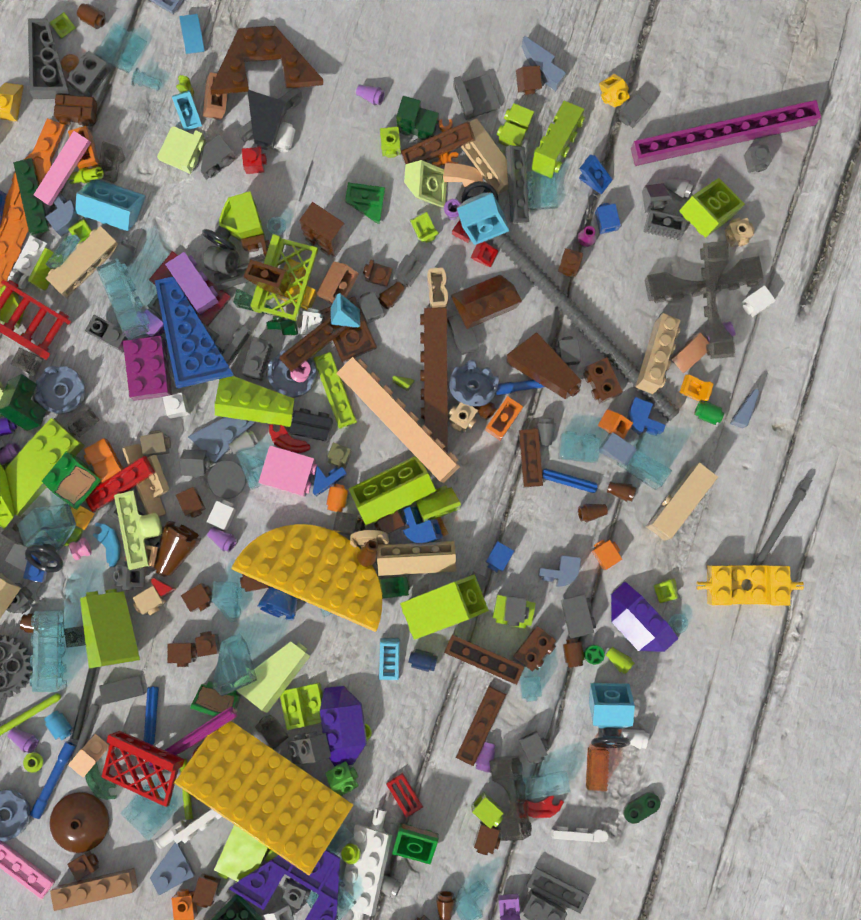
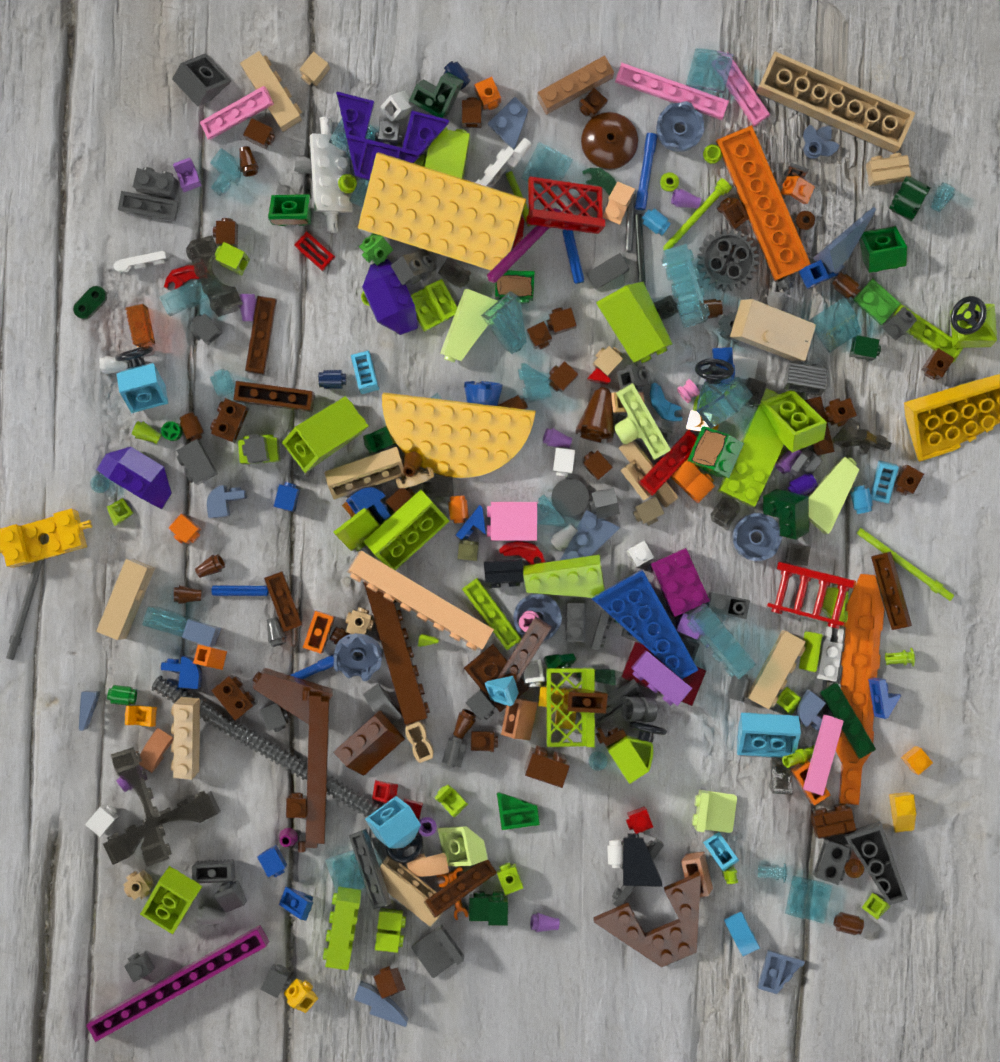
camera: 160 degrees right, 5 degrees up
(63, 251) = (797, 673): clear light blue tile -> none
(215, 156) = (678, 815): dark grey slope -> none
(542, 288) = (316, 771): none -> reddish brown piece
(587, 454) = (230, 632): clear light blue brick -> none

